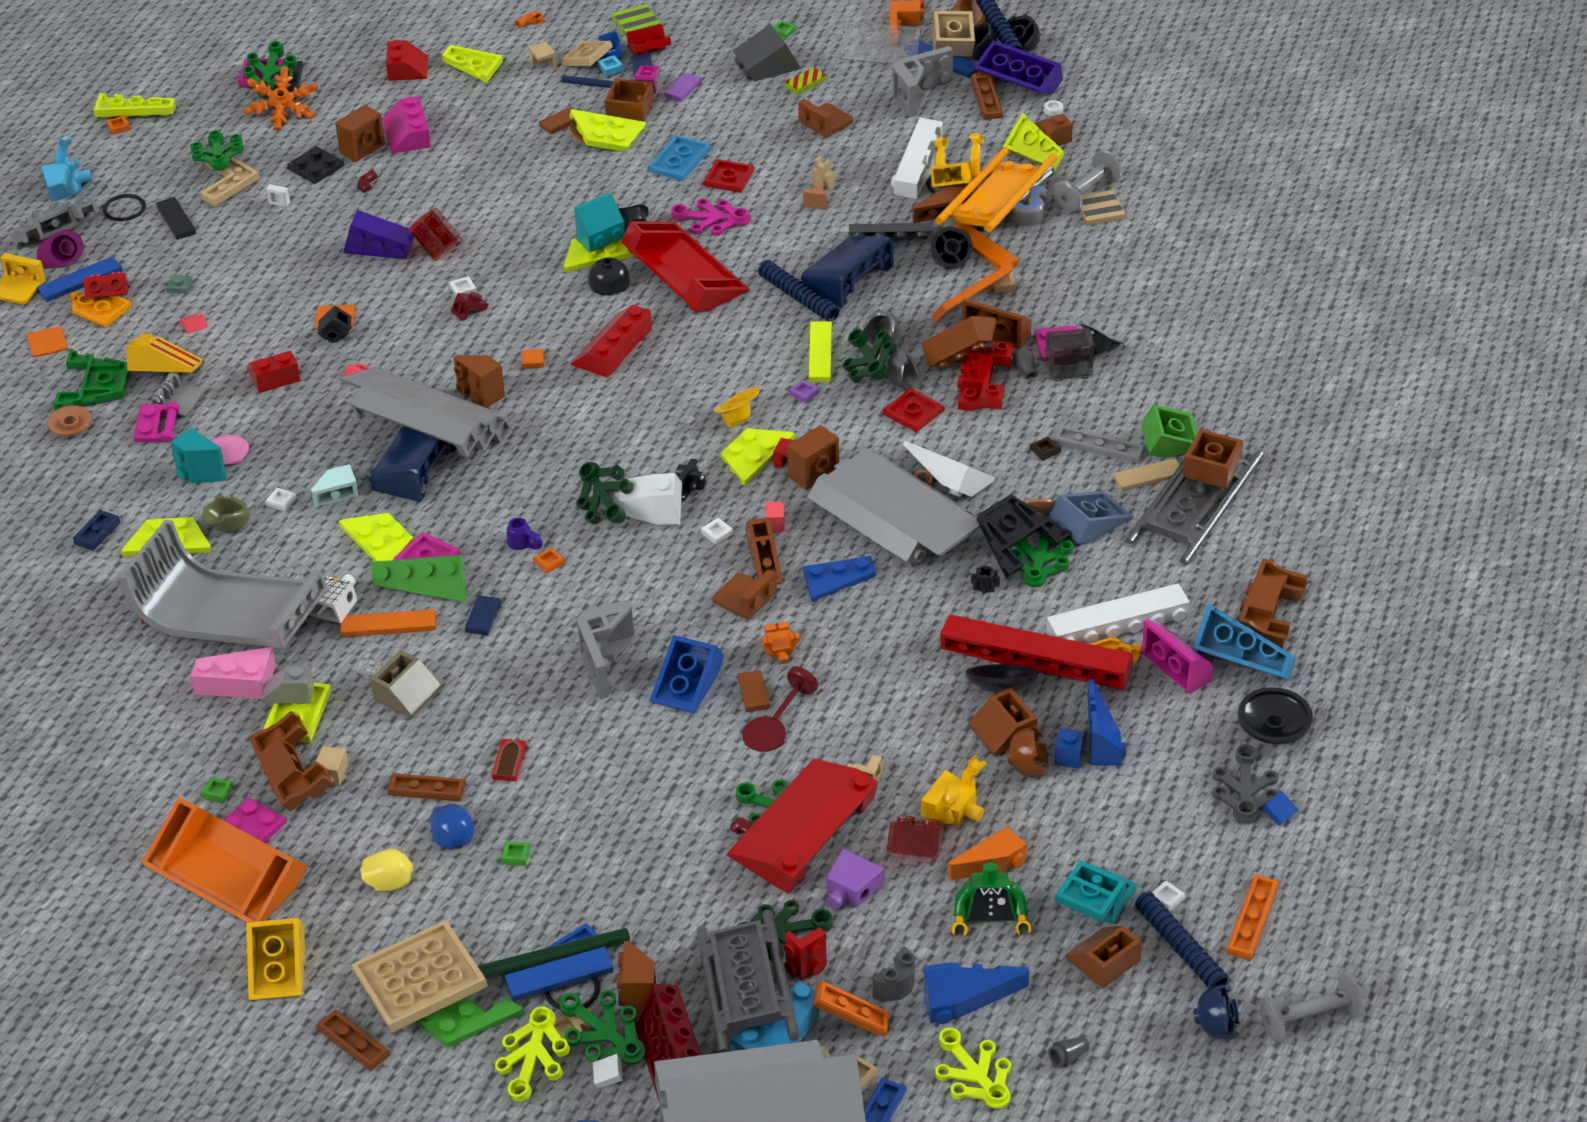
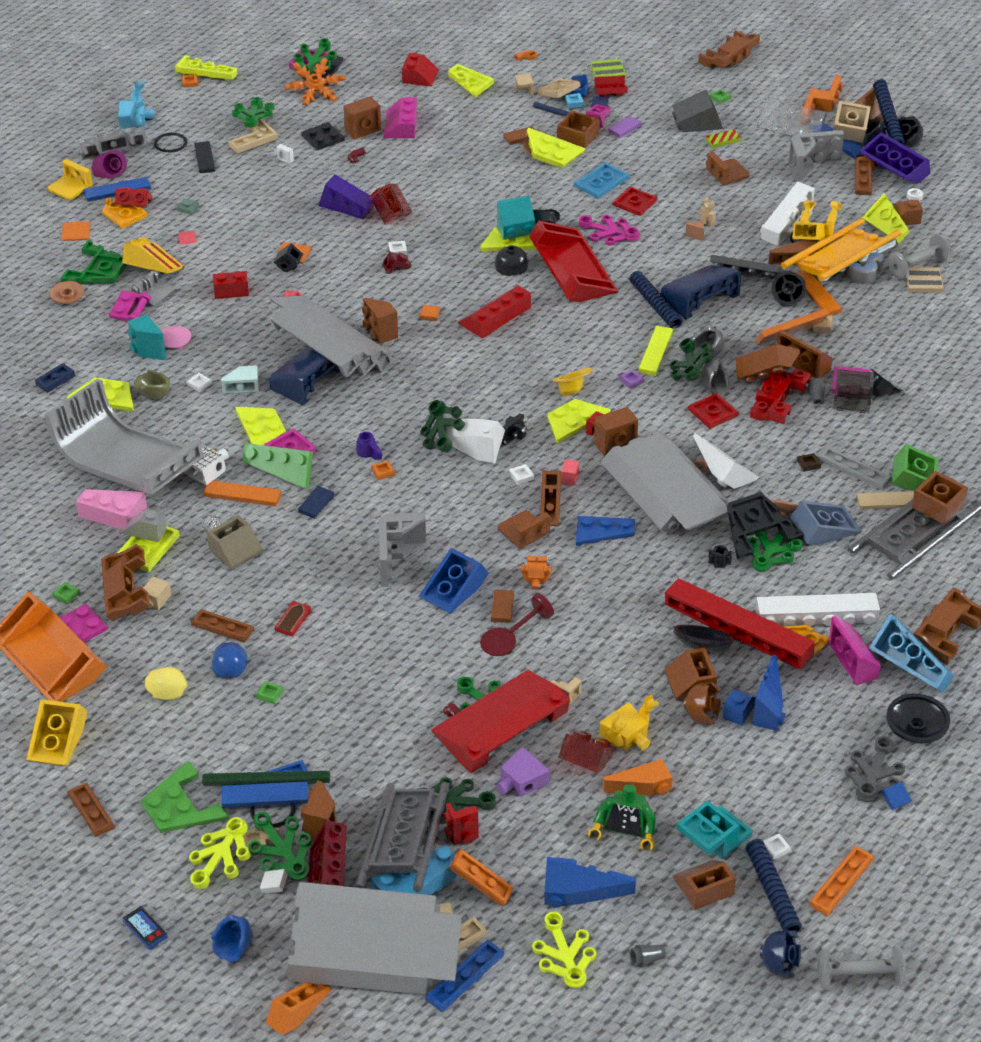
camera: 15 degrees right, 0 degrees up
(419, 976) = (156, 771): tan plate -> none
(896, 981) = (528, 863): dark grey cylinder -> none

